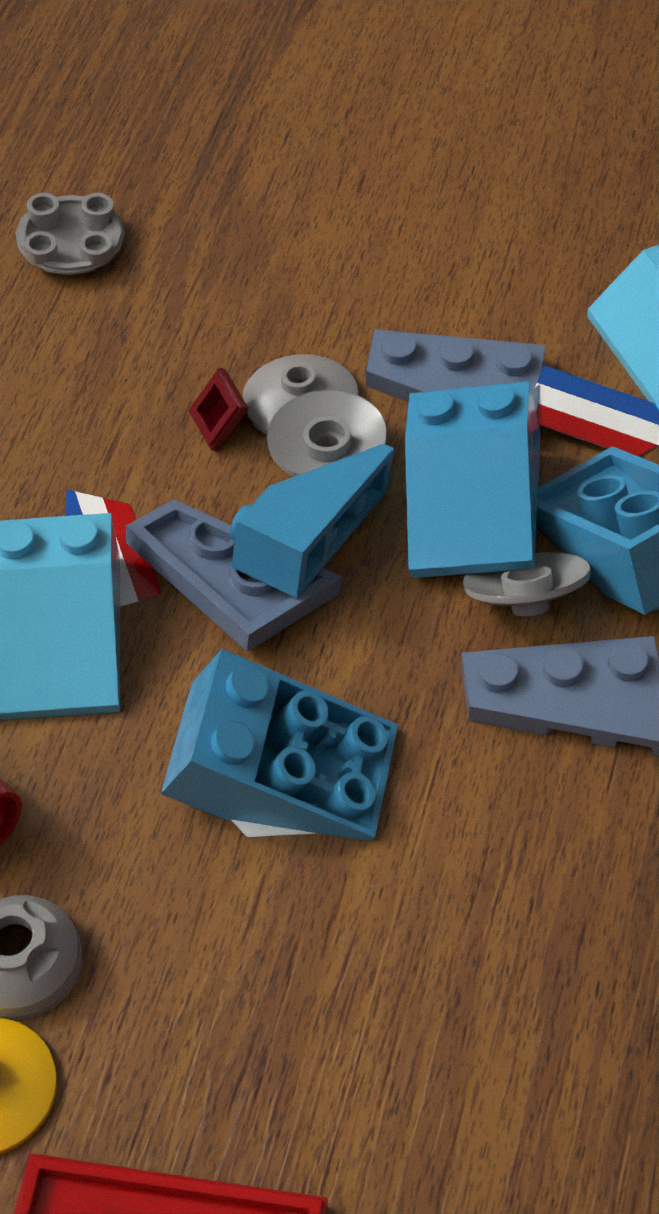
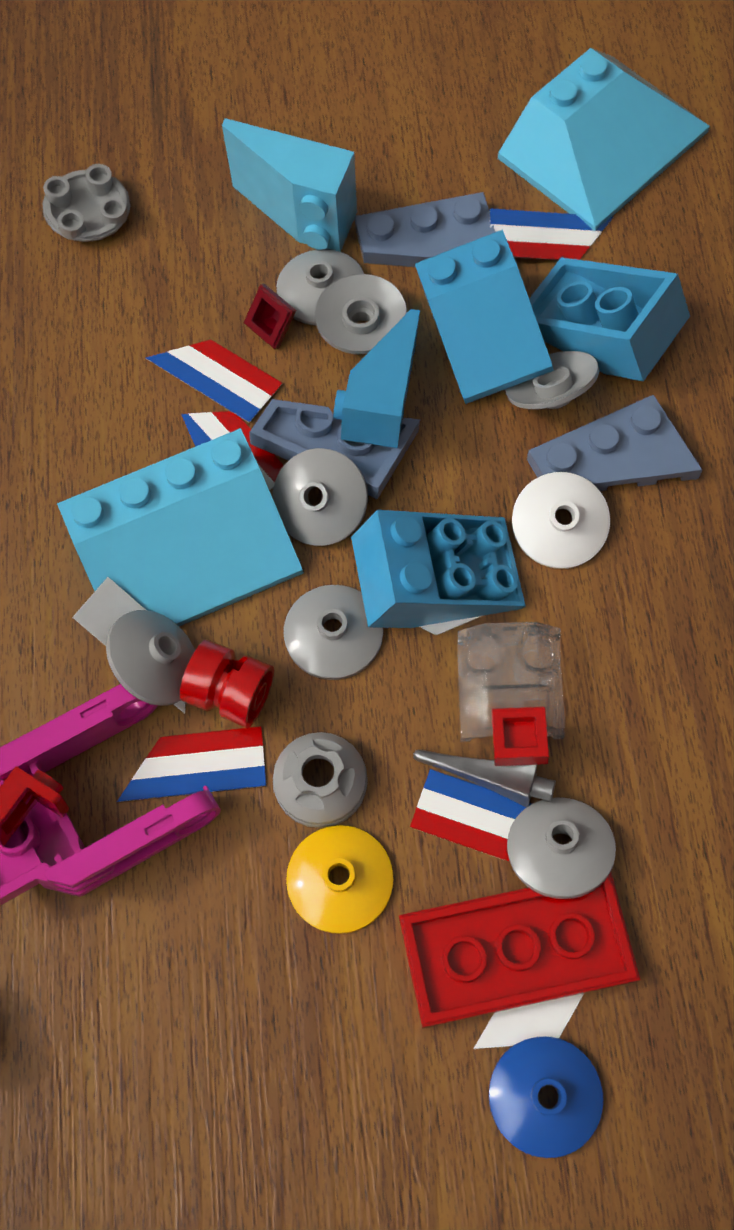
camera: 20 degrees left, 15 degrees up
(117, 813) = (329, 653): none -> light grey dish
(132, 460) = (220, 376): none -> sticker
(199, 1078) = (465, 814): none -> sticker
(200, 625) = (342, 502): none -> light grey dish
(248, 1035) = (512, 782): none -> flat silver piece
(278, 980) = (520, 736): none -> red plate
(283, 1169) = (556, 868): none -> light grey dish
(308, 916) = (508, 669): none -> clear slope
(317, 271) = (294, 182): none -> medium azure slope
(473, 777) = (547, 539): none -> white dish

